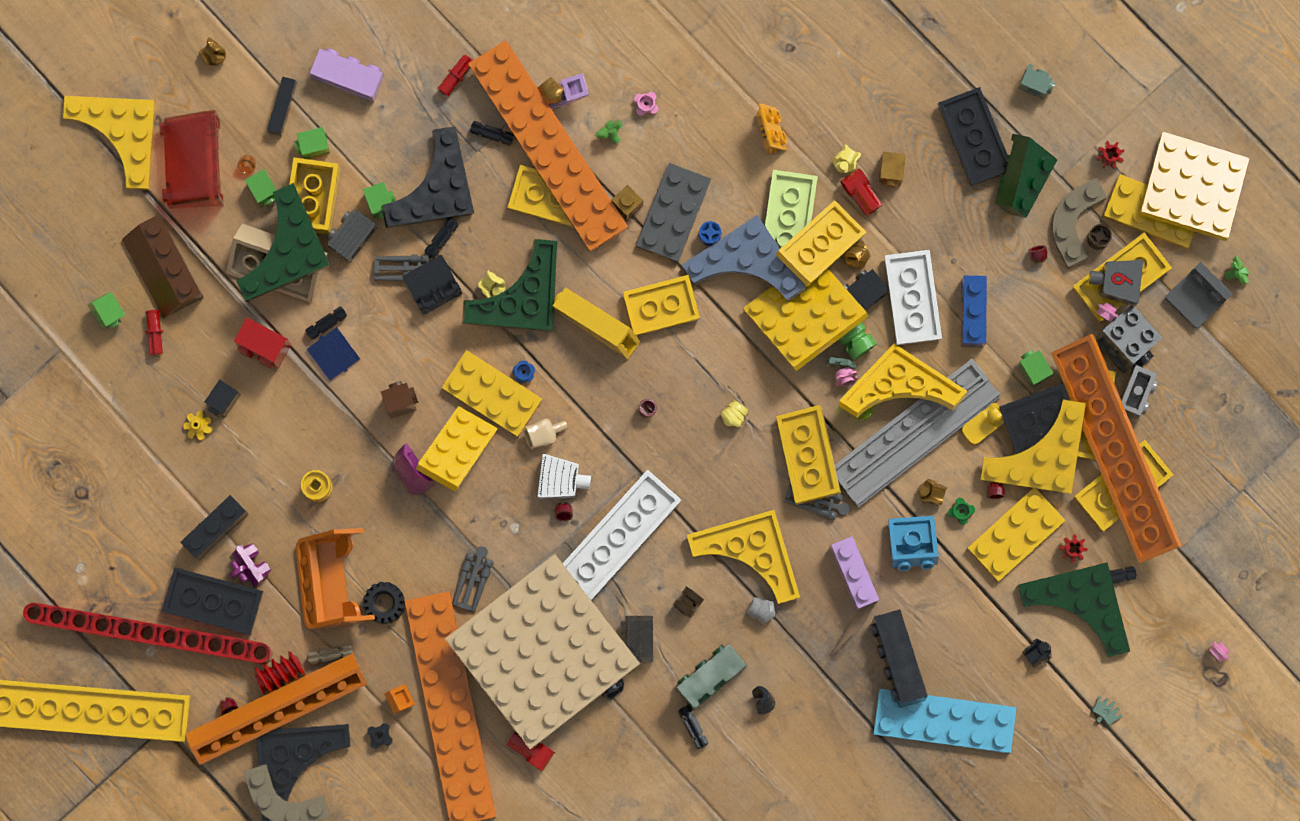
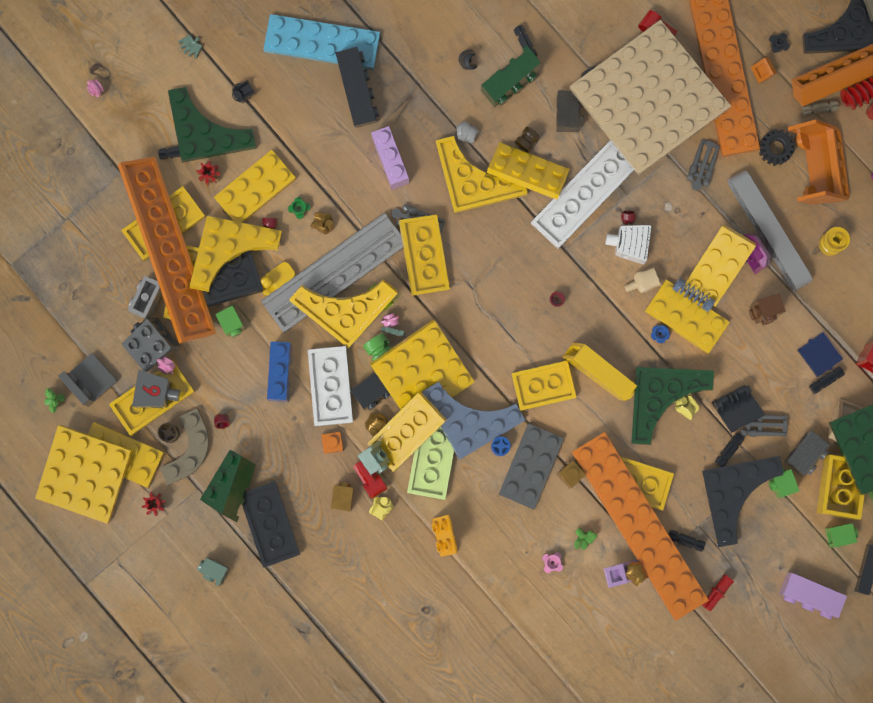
camera: 175 degrees left, 0 degrees up
(393, 499) = (769, 230): none -> light grey beam
(469, 404) = (706, 306): none -> sand blue piece
(686, 562) = (528, 170): none -> yellow plate
(734, 414) = (485, 292): light yellow arm -> none
(857, 212) = (374, 458): none -> sand green brick
(907, 233) = (332, 442): none -> orange plate
(913, 542) = (340, 181): dark azure plate -> none

